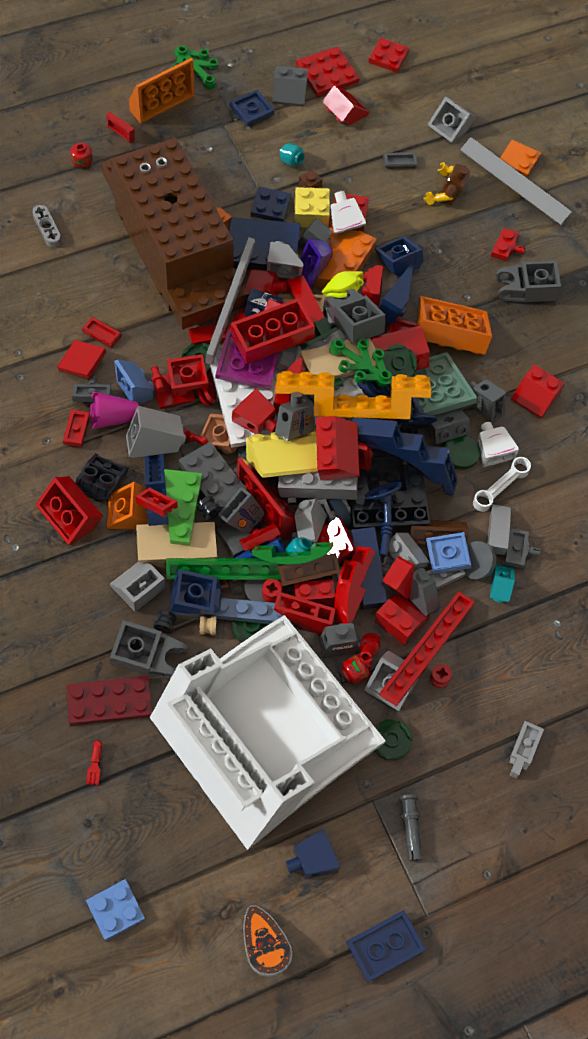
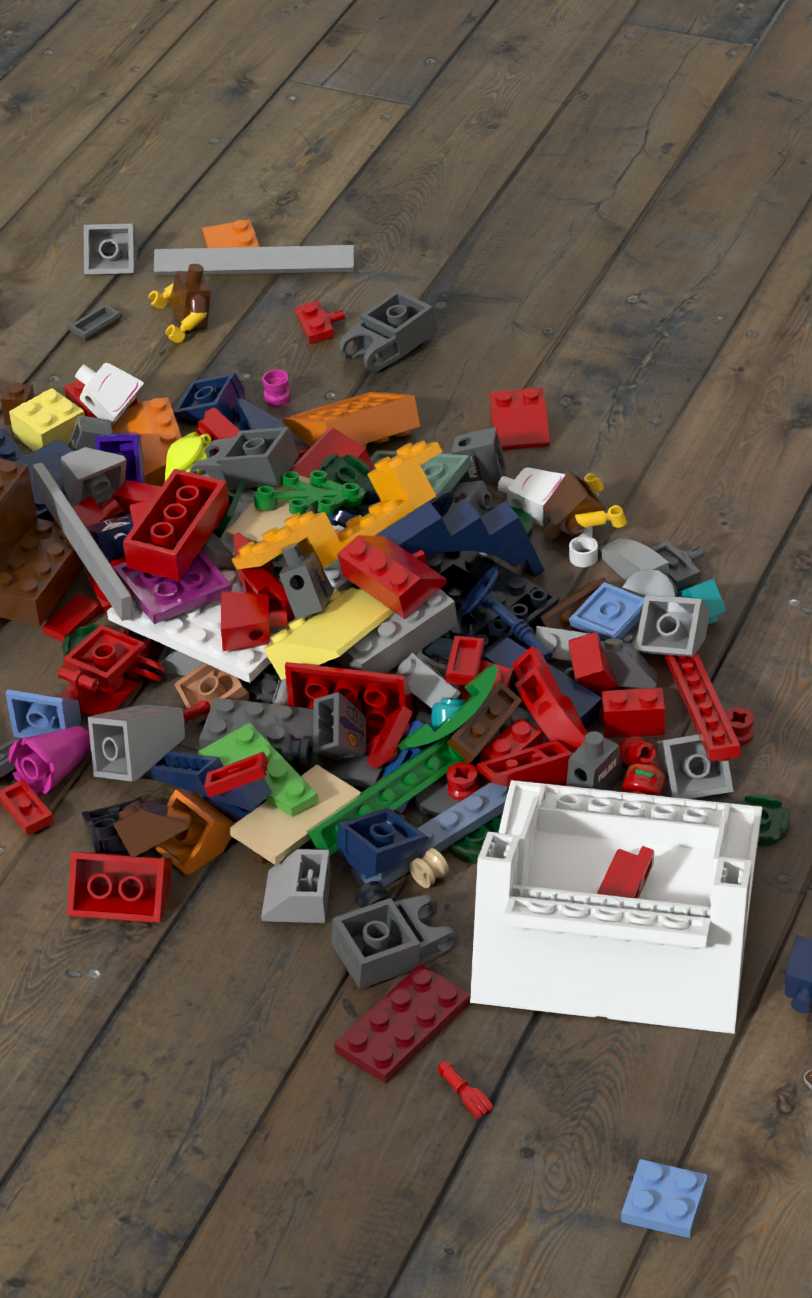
camera: 35 degrees left, 20 degrees down
(98, 494) = (149, 825): none -> reddish brown slope
(269, 724) = (627, 873): none -> red panel
(333, 526) = (464, 660): none -> red tile
(440, 272) = (276, 388): none -> dark pink wheel
(465, 590) = (672, 625): none -> light grey slope
(500, 472) = (577, 507): none -> reddish brown torso

